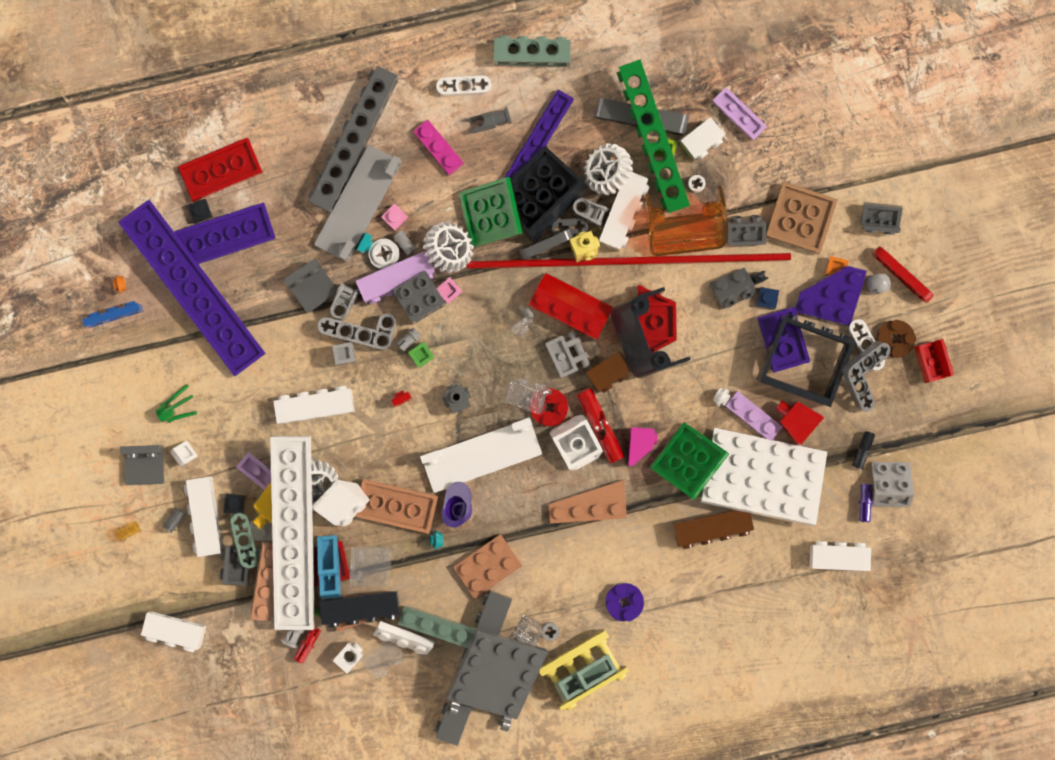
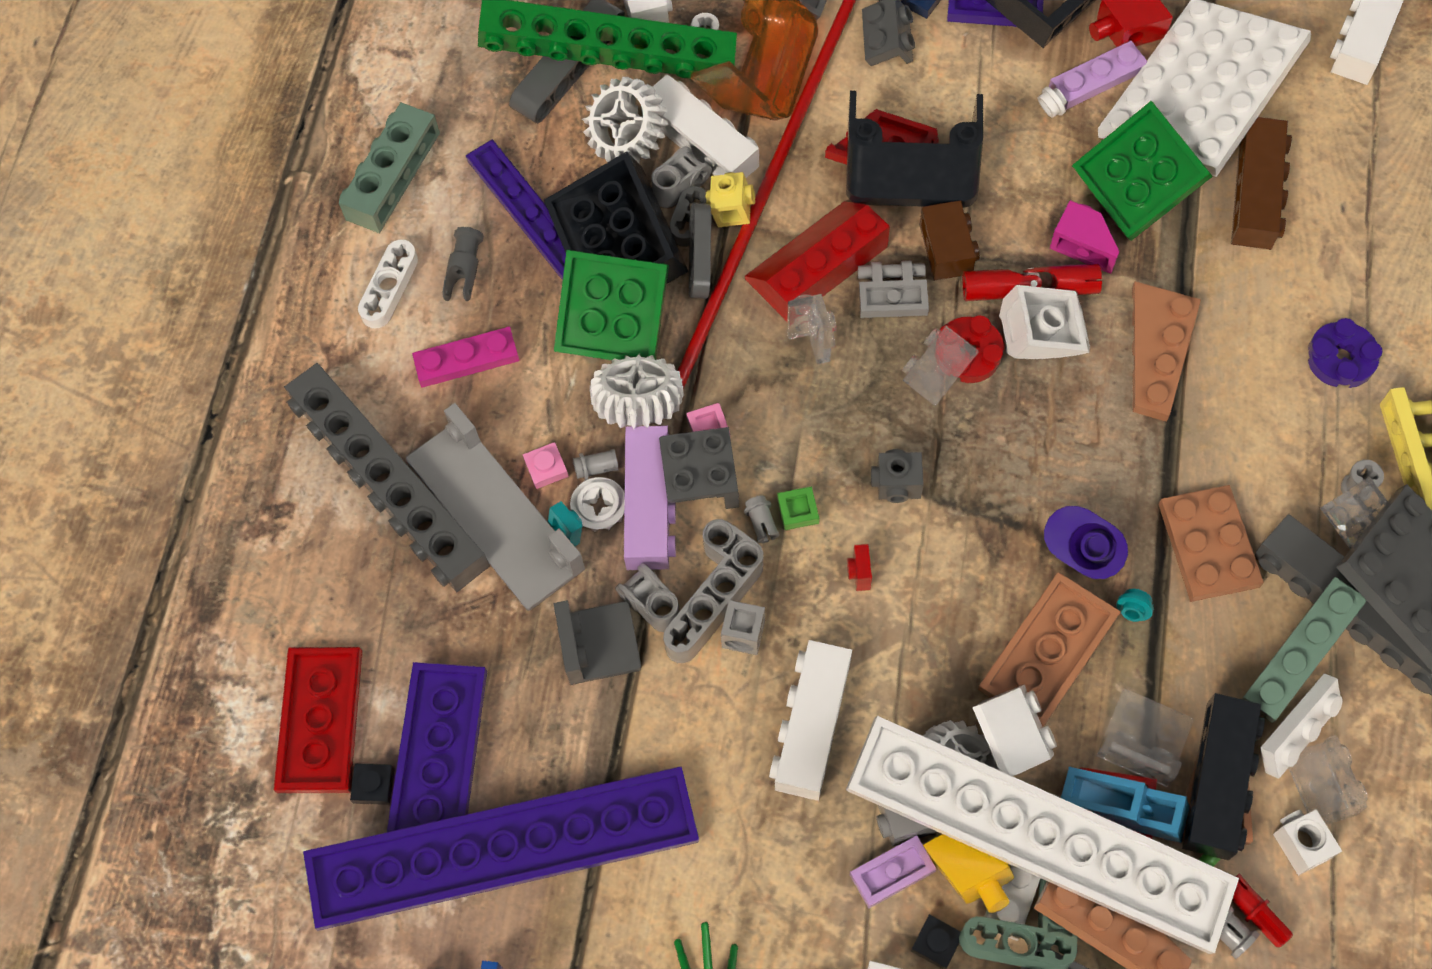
camera: 60 degrees left, 20 degrees down
(481, 455) = (1010, 480): white bracket -> none

